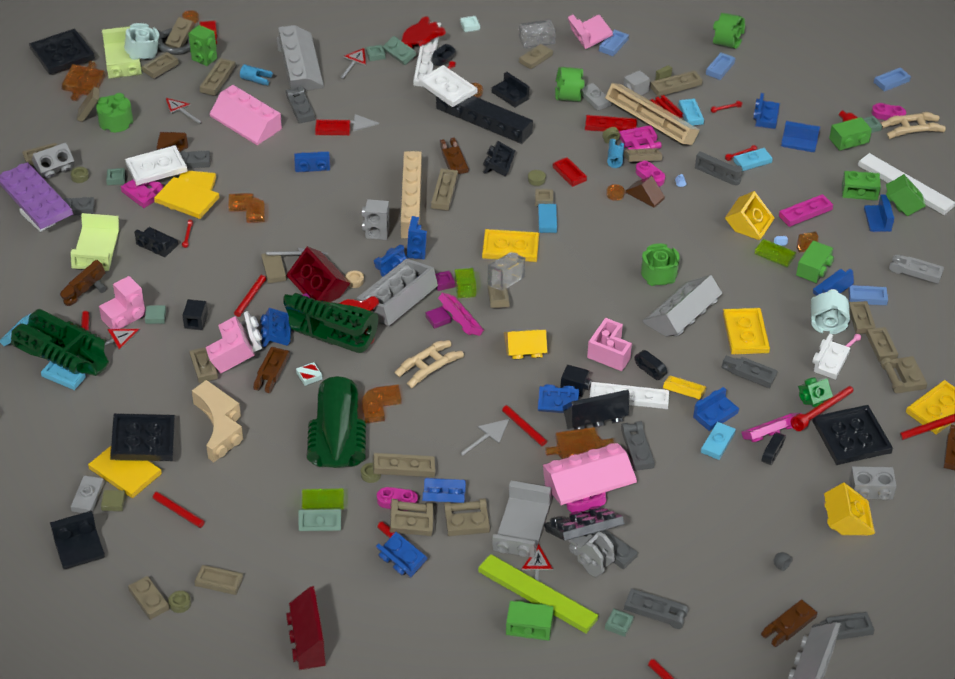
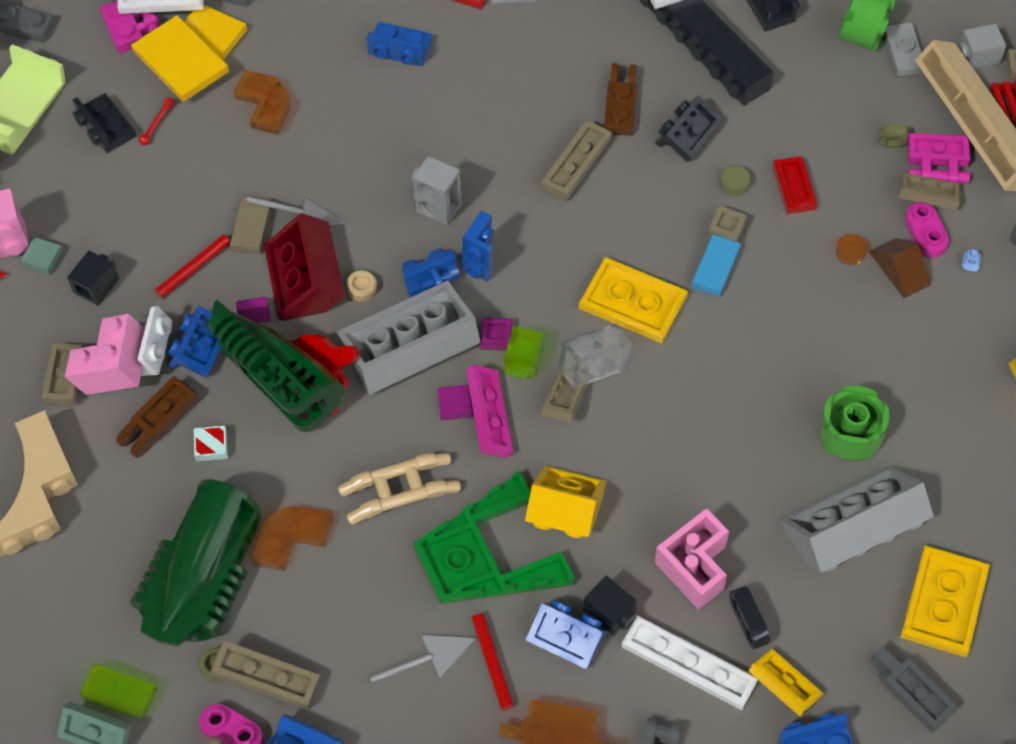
camera: 25 degrees right, 15 degrees up
(410, 189) = (519, 152): tan brick -> none
(486, 387) = (461, 563): none -> green wing
(597, 410) = (612, 683): black slope -> none
(601, 123) = (904, 110): red tile -> none
(615, 154) = (884, 174): dark azure hinge -> none

